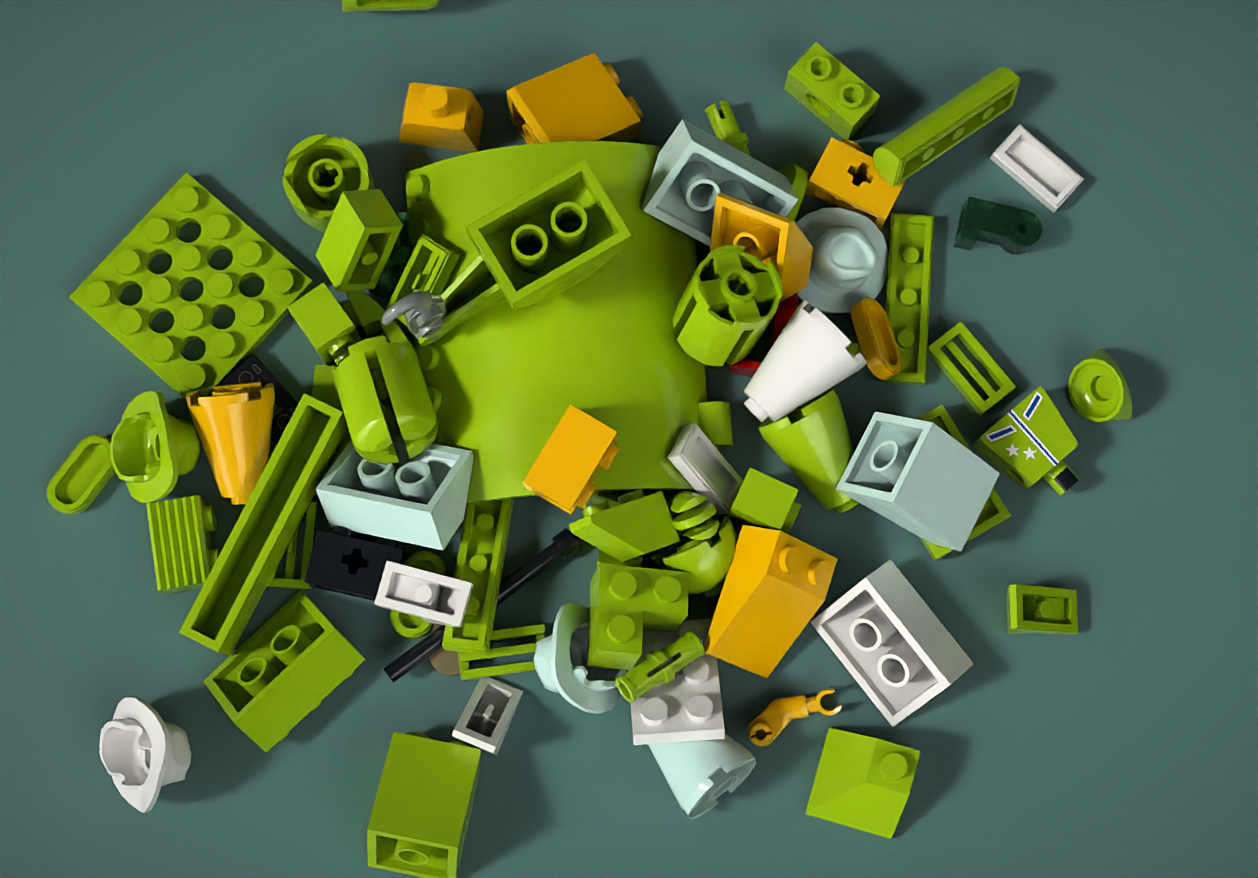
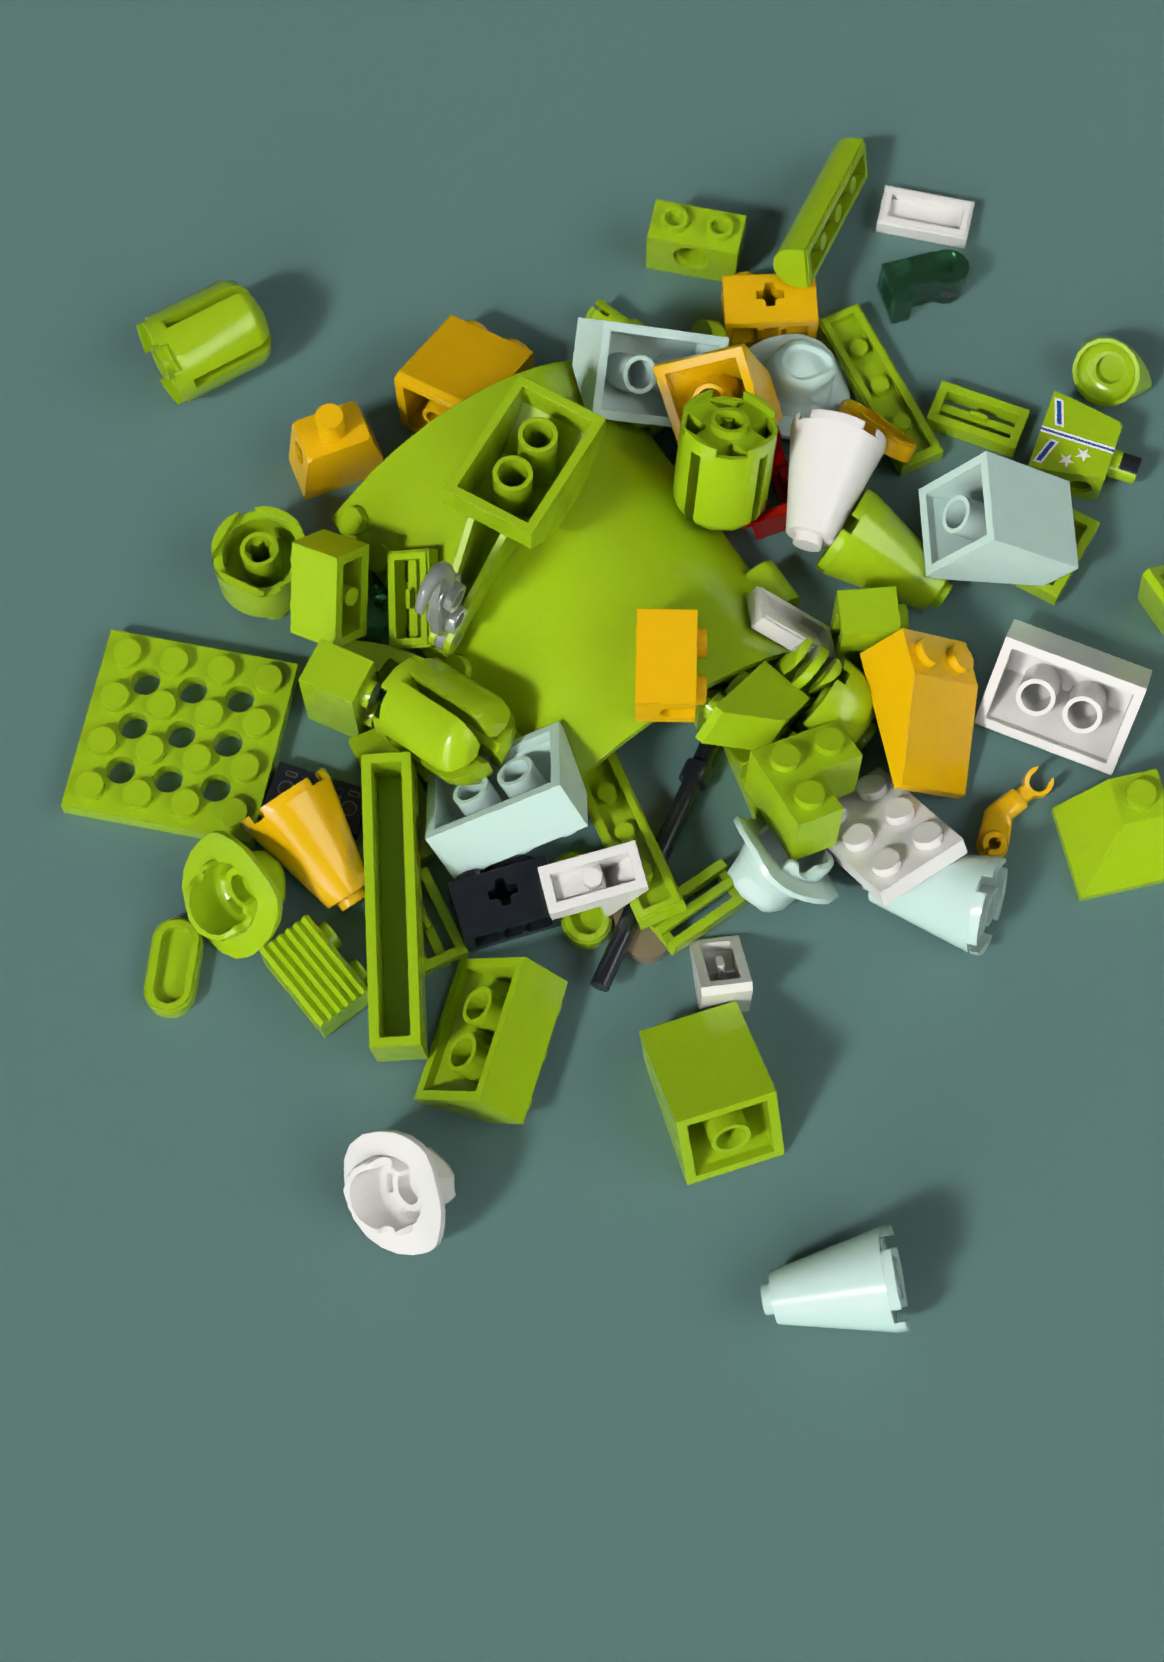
camera: 25 degrees left, 10 degrees down
(637, 682) = (854, 841): lime pin -> none

